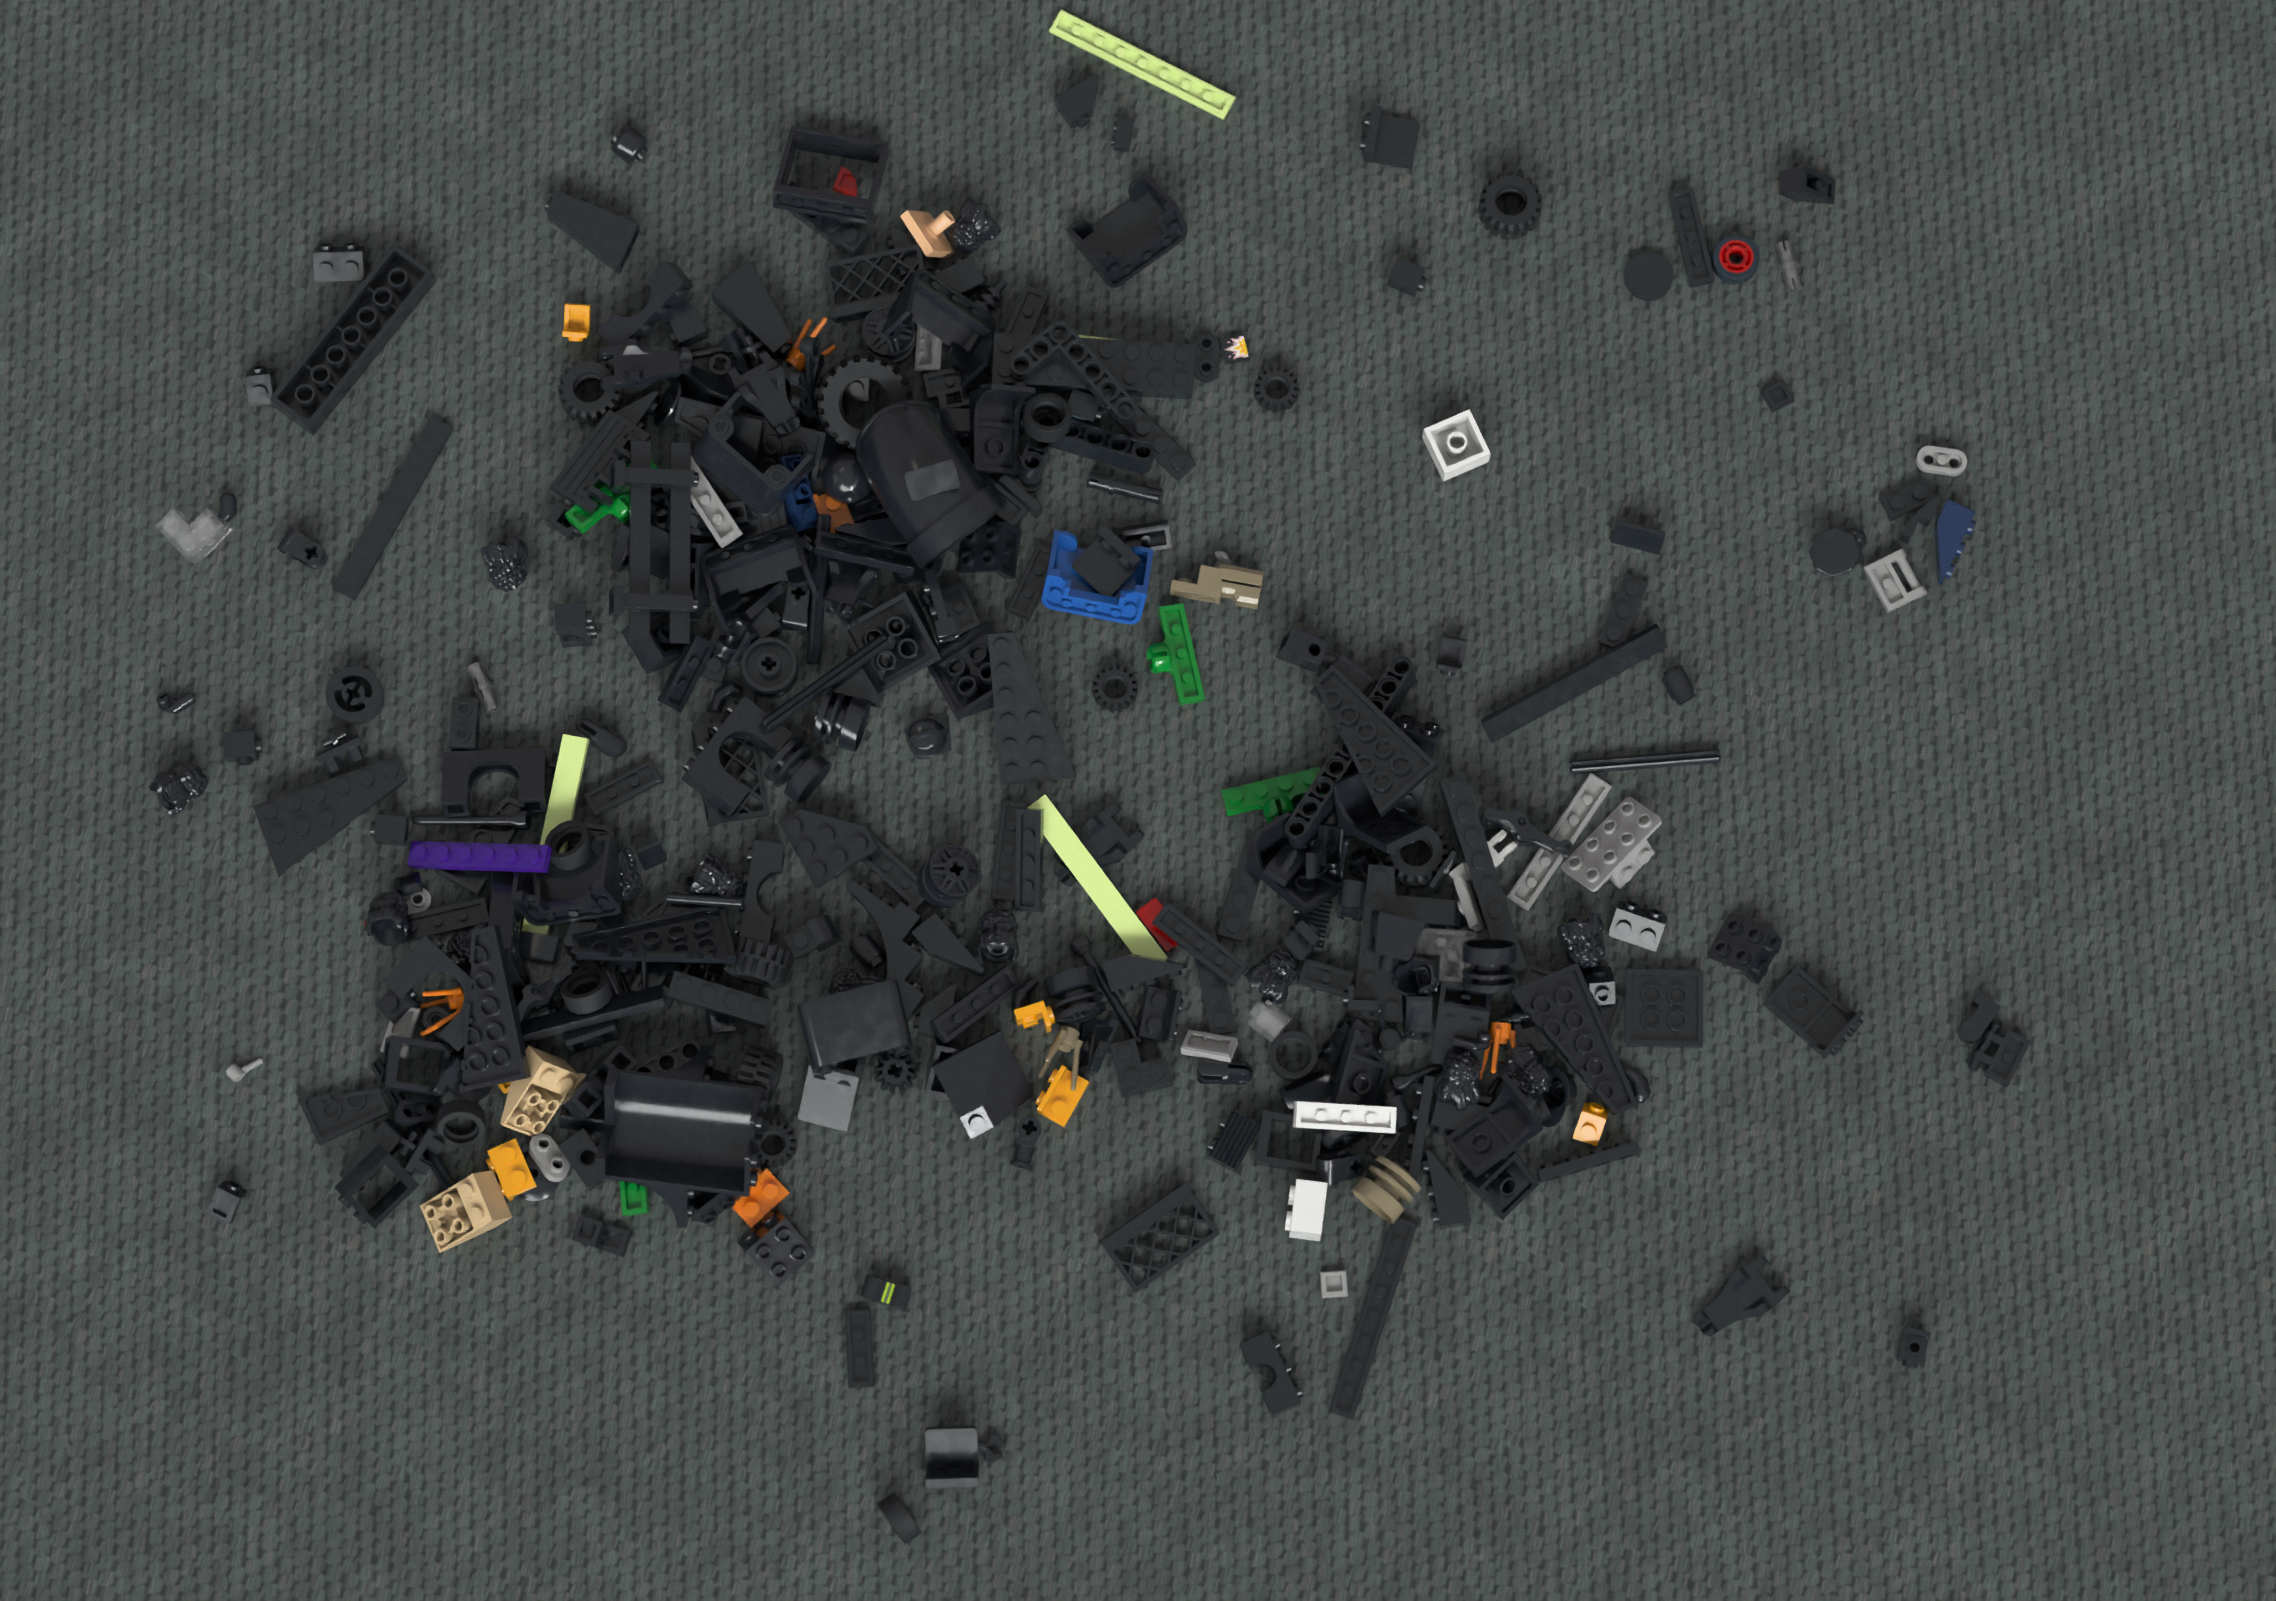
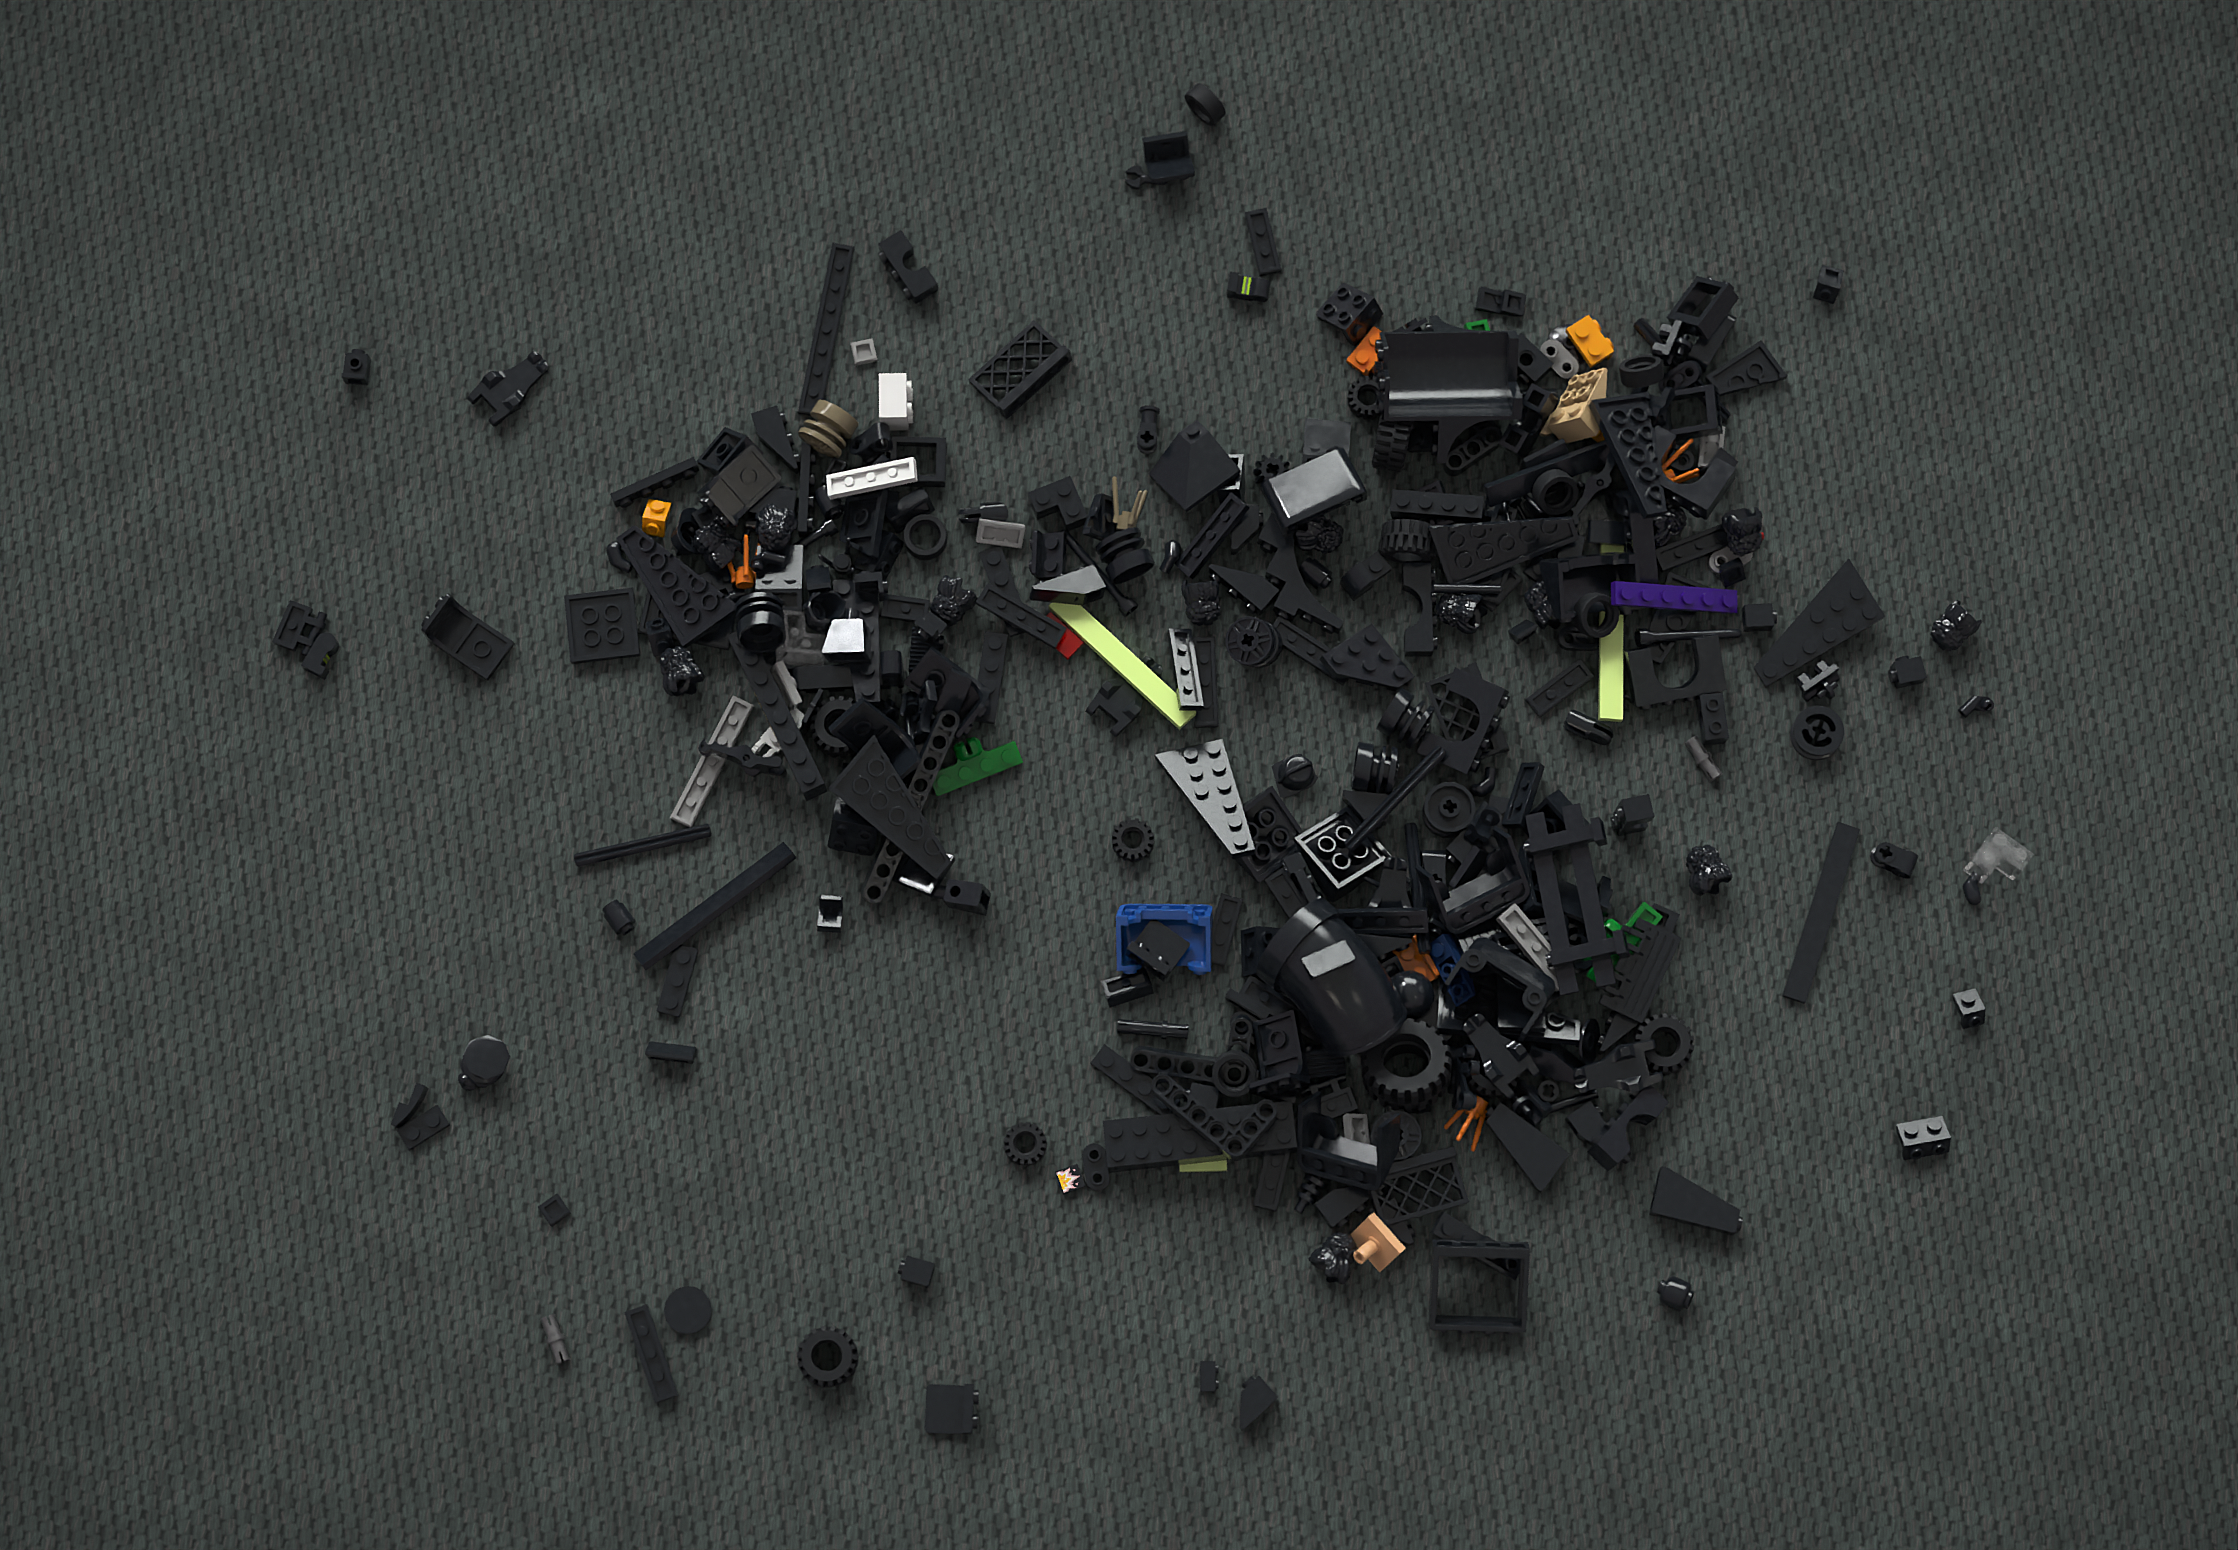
camera: 170 degrees right, 0 degrees up
(236, 1073) = (1845, 392): light grey hand -> none
(353, 339) = (1893, 1060): black brick -> none
(466, 1210) = (1620, 302): tan slope -> none
(576, 321) = (1689, 1111): light orange bracket -> none
(845, 183) = (1463, 1288): red tile -> none
(1029, 1015) = (1159, 534): light orange bracket -> none
(1059, 1099) = (1125, 468): light orange bracket -> none
(1132, 233) = (1187, 1275): black windscreen -> none
(1142, 64) = (1201, 1452): yellowish green tile -> none
(1177, 655) = (1081, 879): green plate -> none
(1223, 581) = (1048, 953): dark tan plate -> none
(1233, 1141) = (967, 456): black brick -> none
(1268, 1020) = (950, 561): clear brick -> none
(1456, 445) = (849, 1111): white brick -> none
(1614, 847) = (661, 761): light grey bracket -> none
(1637, 925) = (633, 696): bracket -> none
(1732, 272) = (616, 1347): wheel -> none
(1746, 947) = (535, 689): black bracket -> none
(1807, 185) = (544, 1420): black slope -> none
(1887, 583) = (435, 1043): light grey plate -> none
(1941, 458) = (394, 1167): light grey plate -> none
(1949, 532) = (380, 1097): dark blue slope -> none

